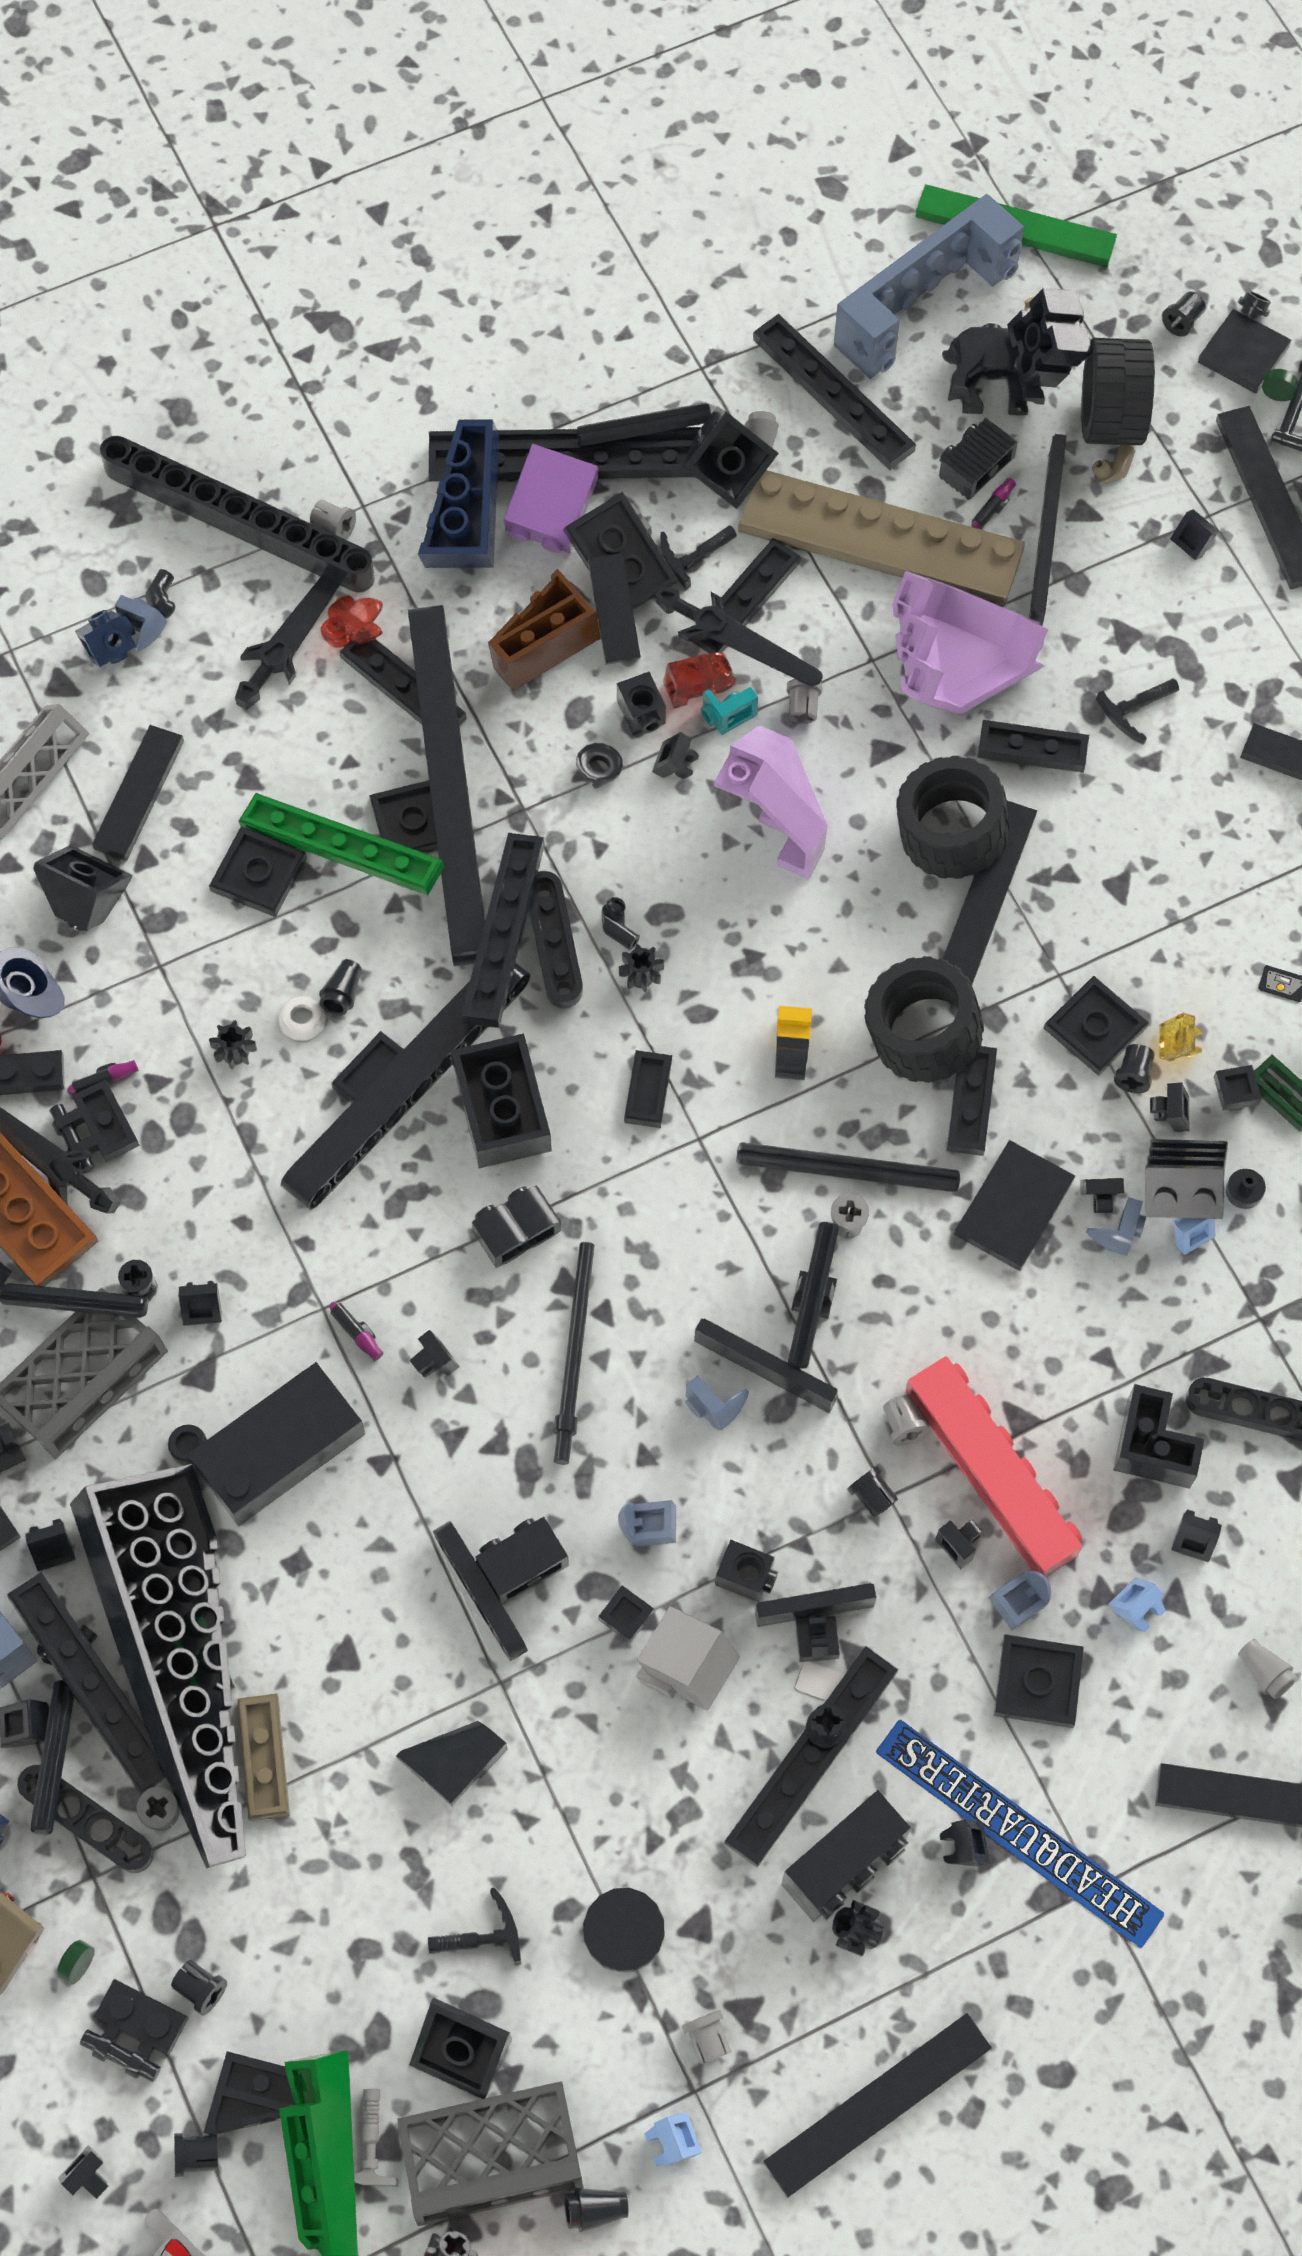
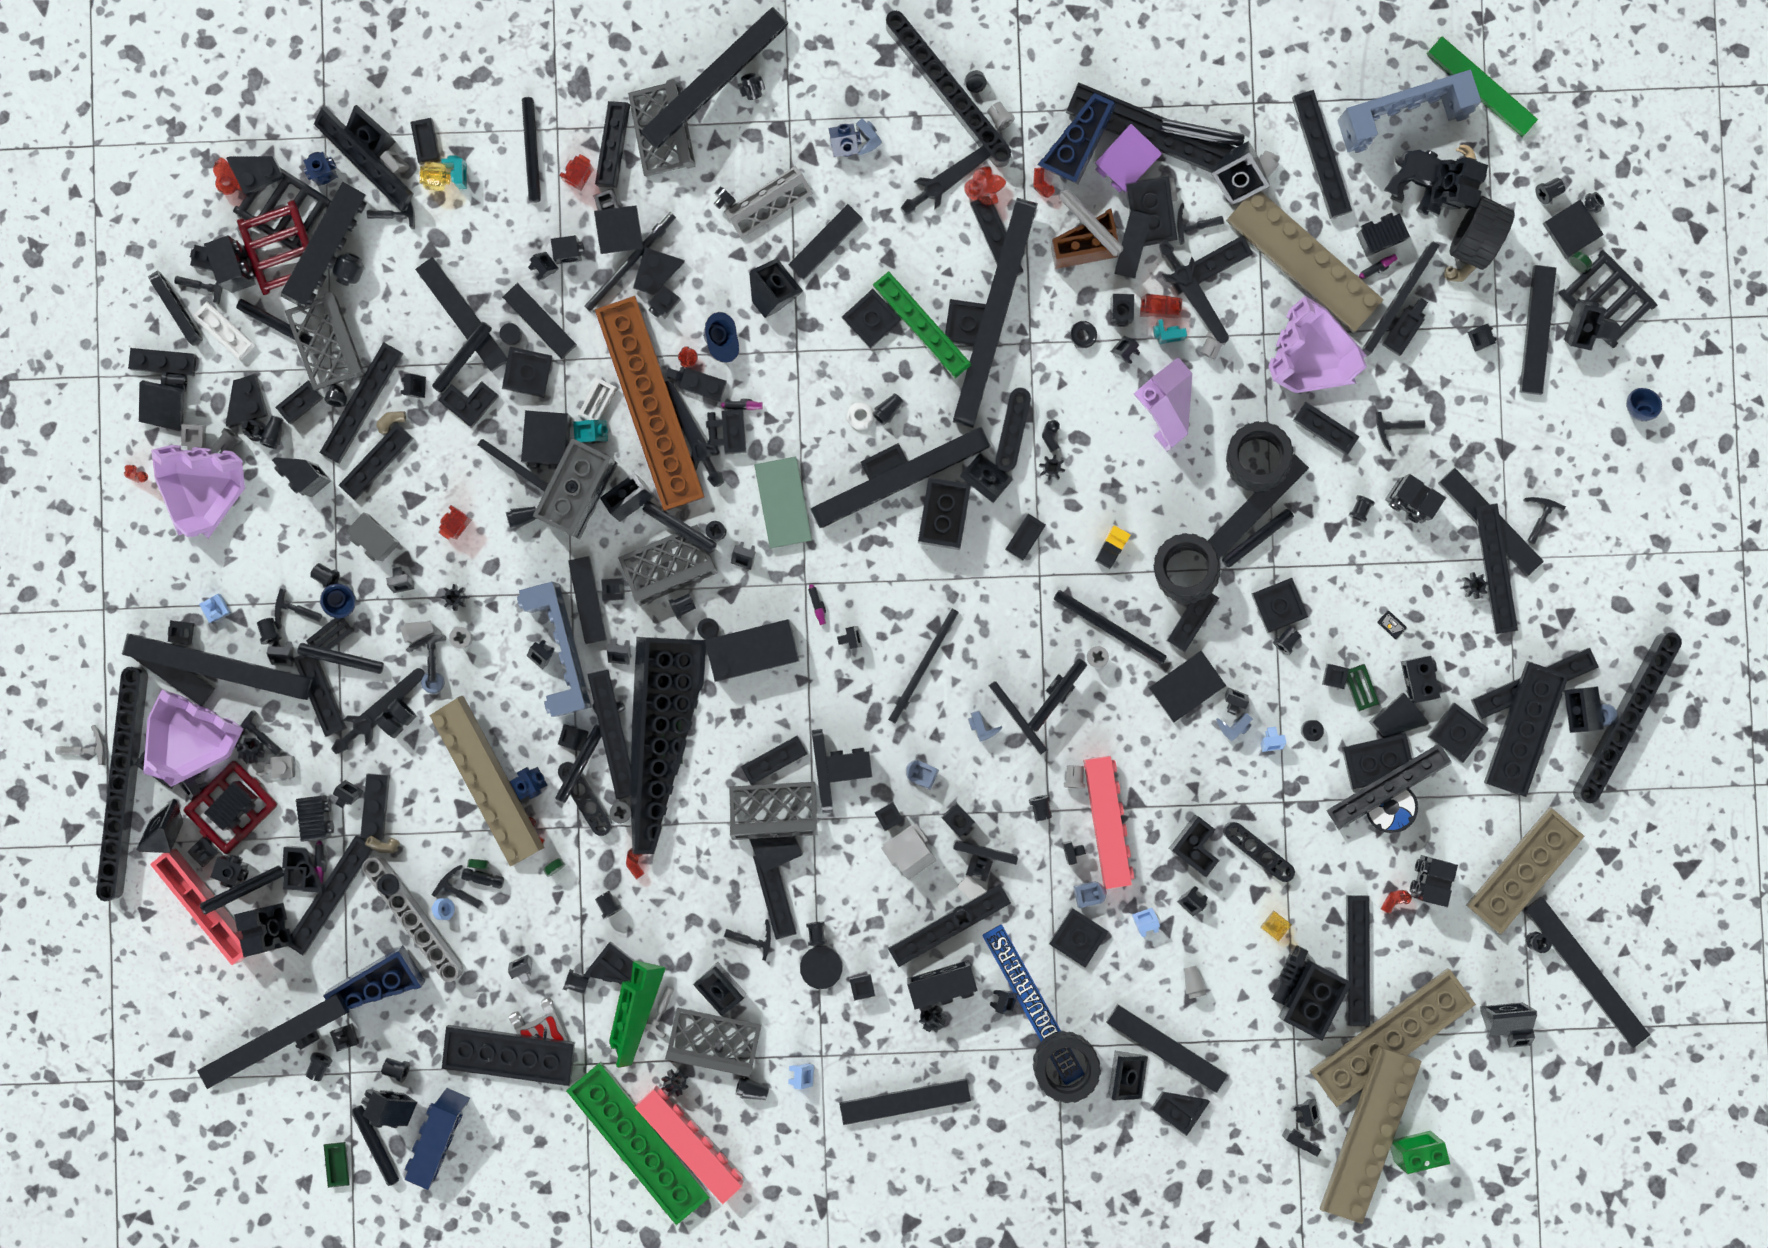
camera: 30 degrees right, 20 degrees up
(124, 1429) = (682, 605): none -> black bush
(140, 2018) = (576, 908): black plate -> none
(157, 596) = (882, 122): black arm -> none
(213, 1894) = (632, 864): none -> clear red arm
(224, 1041) = (815, 411): black gear -> none
(231, 1196) = (783, 502): none -> sand green tile
(263, 1757) = (682, 805): dark tan tile -> none
(274, 488) = (975, 81): none -> black tile
(389, 1611) = (774, 760): none -> black tile
(444, 1716) = (773, 829): none -> dark grey fence
(445, 592) = (1040, 185): none -> clear red arm
(494, 1849) = (776, 901): none -> black tile
(503, 930) = (986, 418): black plate -> none
(515, 1225) = (922, 585): black brick -> none
(536, 595) = (1091, 222): none -> light grey axle
(544, 1019) = (986, 477): none -> black tile
(589, 1871) = (816, 933): none -> black bush
(708, 2037) = (838, 1035): light grey bush -> none
(710, 1927) = (862, 987): none -> black tile
(1011, 941) = (1257, 538): none -> black axle
(1077, 566) = (1405, 327): none -> black hinge
(1146, 834) = (1361, 508): none -> black bush
(1166, 1876) = (1073, 1092): none -> black tyre
(1173, 1107) = (1297, 671): black tile -> none
(1178, 1037) = (1319, 633): clear yellow tile -> none
(1185, 1179) = (1282, 716): plate -> none
(1218, 782) = (1415, 499): none -> black brick
(1236, 1878) = (1127, 1076): none -> black slope

